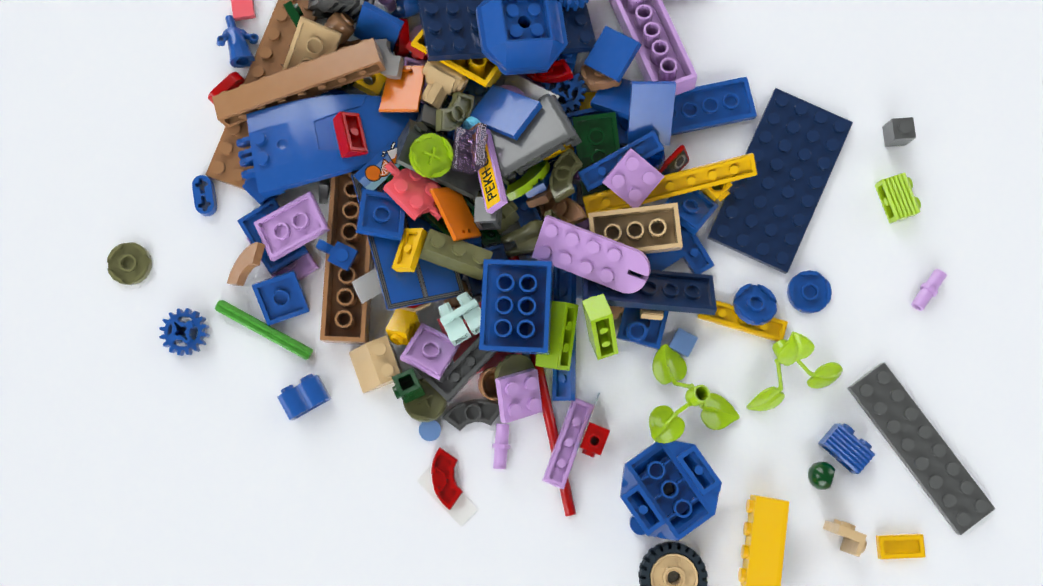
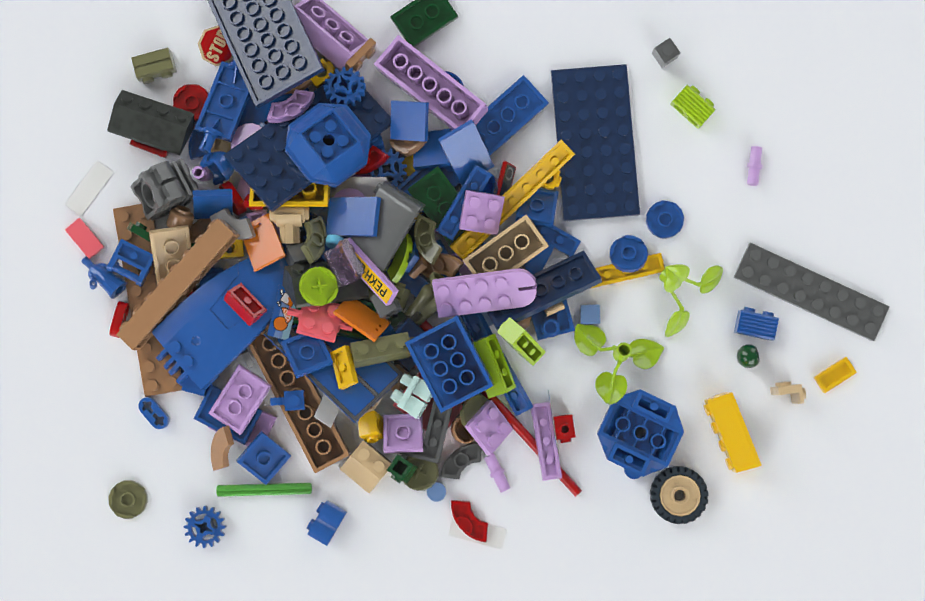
camera: 30 degrees left, 5 degrees up
(274, 36) = (134, 256): none -> blue plate

